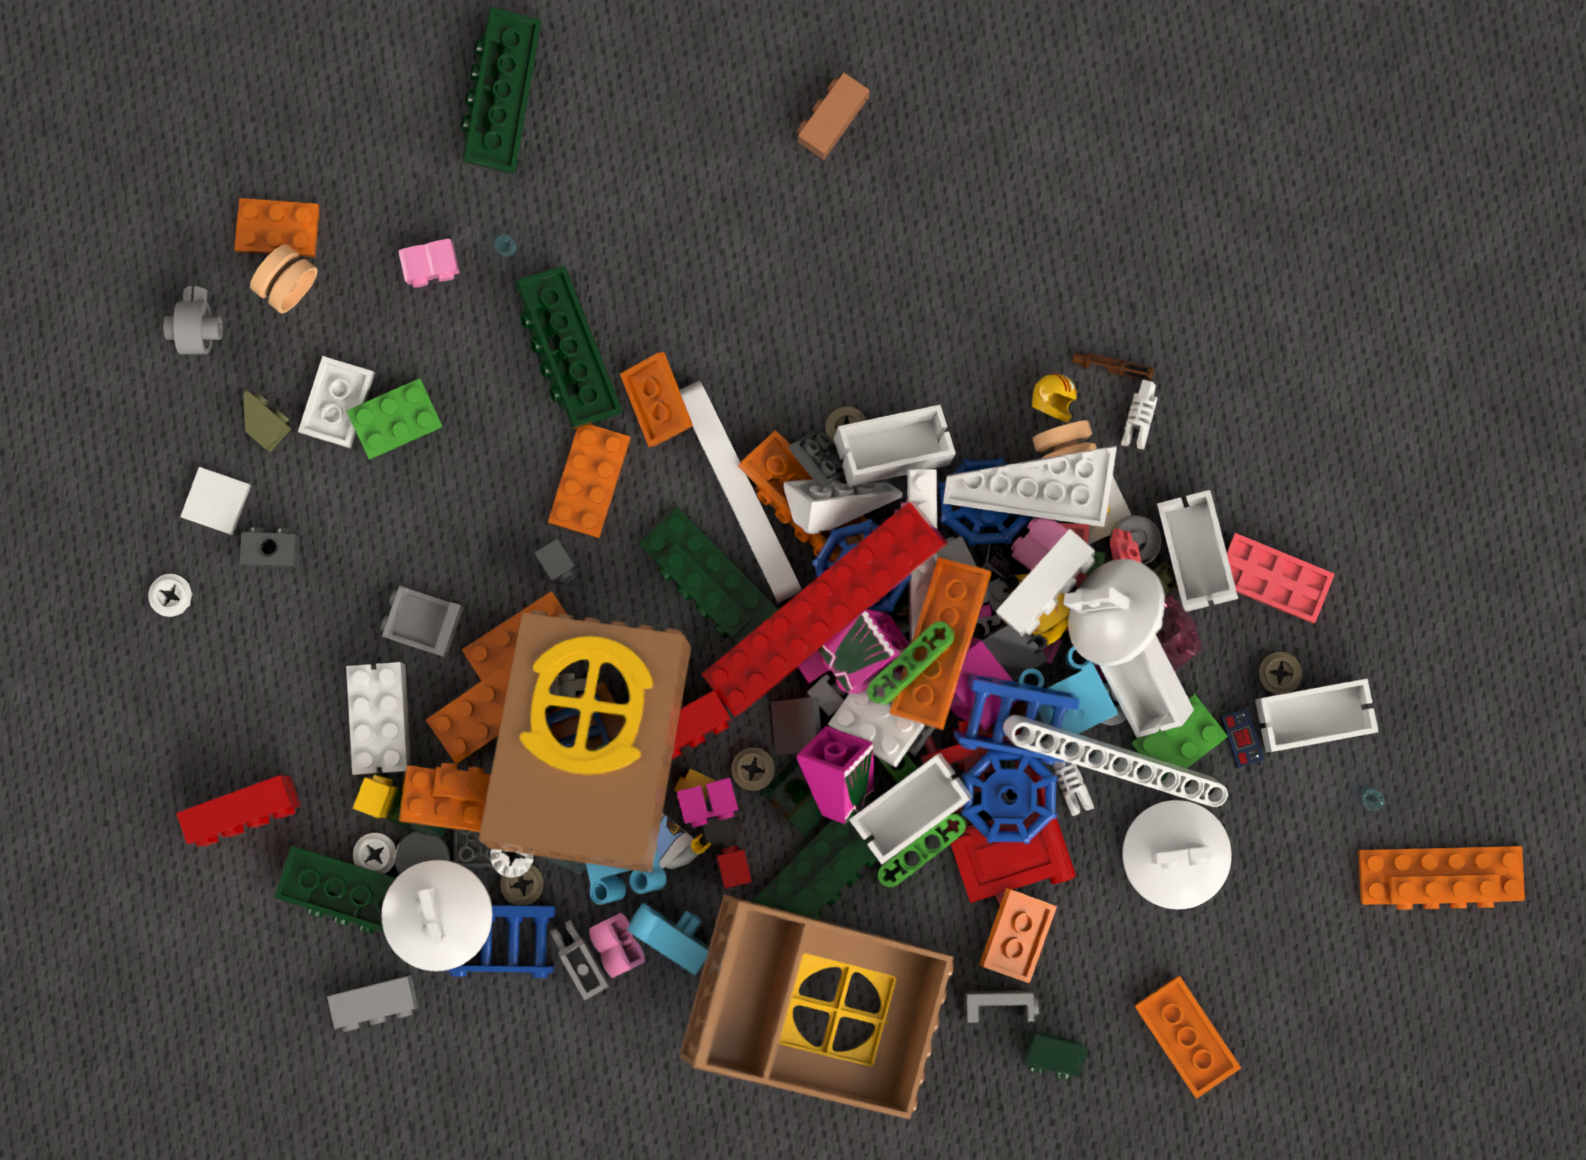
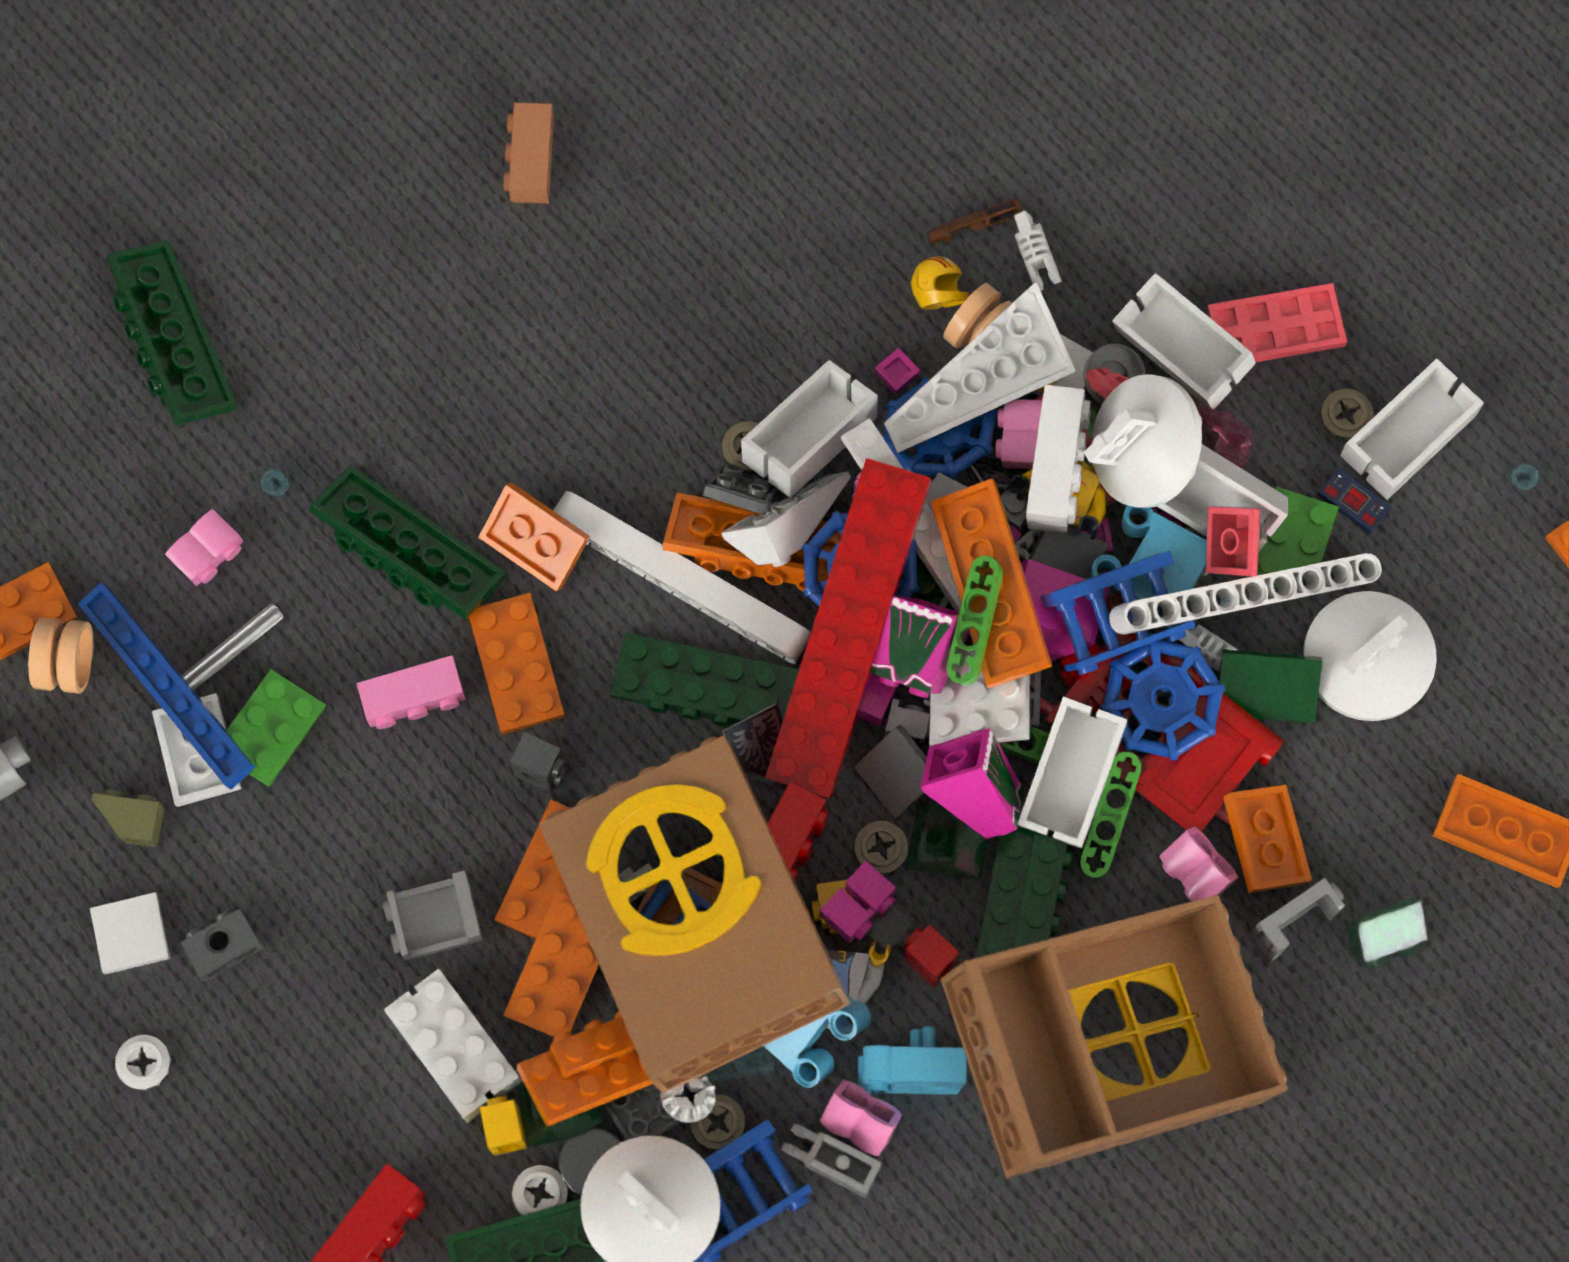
camera: 30 degrees left, 10 degrees down
(341, 346) = (167, 686): none -> blue plate
(401, 344) = (233, 646): none -> light grey axle
(504, 456) = (411, 692): none -> bright pink brick
(712, 642) = (755, 741): none -> black shield
(957, 924) = (1197, 865): none -> bright pink brick
(985, 440) = (897, 371): none -> dark pink plate
(1094, 831) = (1272, 684): none -> dark green tile
(1131, 720) = (1233, 540): none -> coral slope

